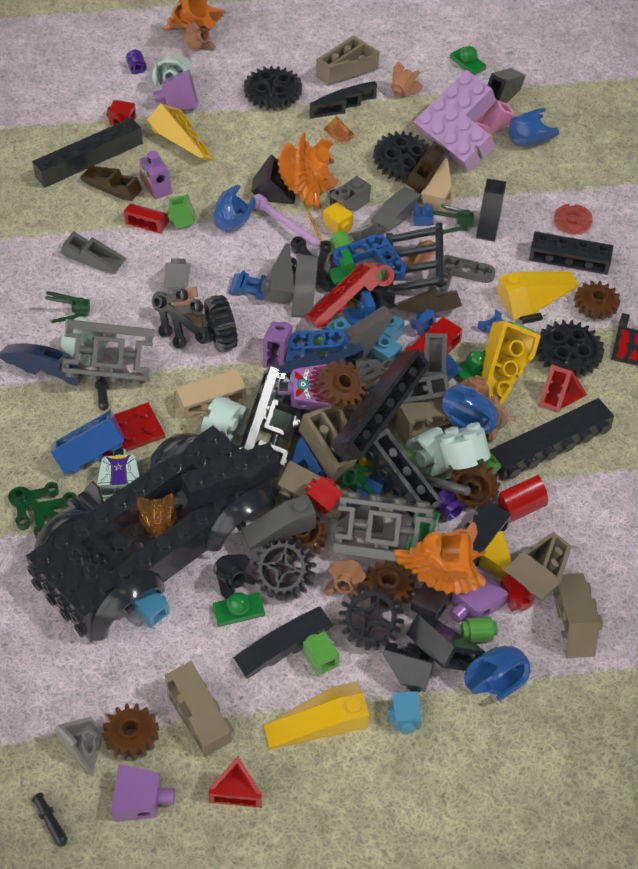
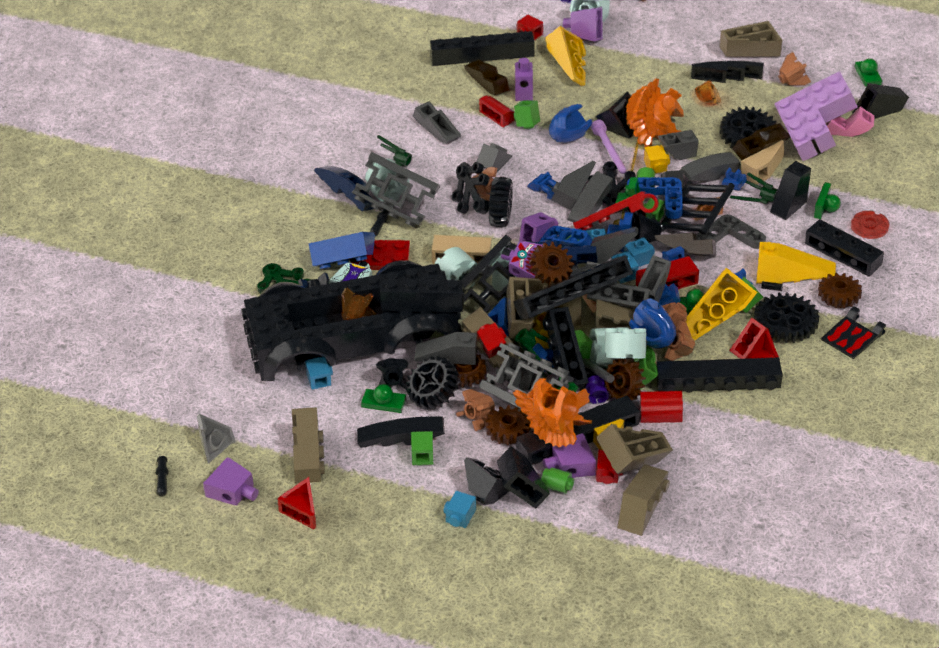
camera: 30 degrees right, 10 degrees down
(130, 744) = (251, 445): reddish brown gear -> none
(285, 90) = (672, 44): black gear -> none
(325, 715) = (402, 492): yellow wedge -> none
(367, 627) = (483, 427): black gear -> none
(498, 672) = (548, 509): blue hair -> none
(522, 209) = (826, 201): none -> green tile
(529, 129) = (877, 142): blue hair -> none

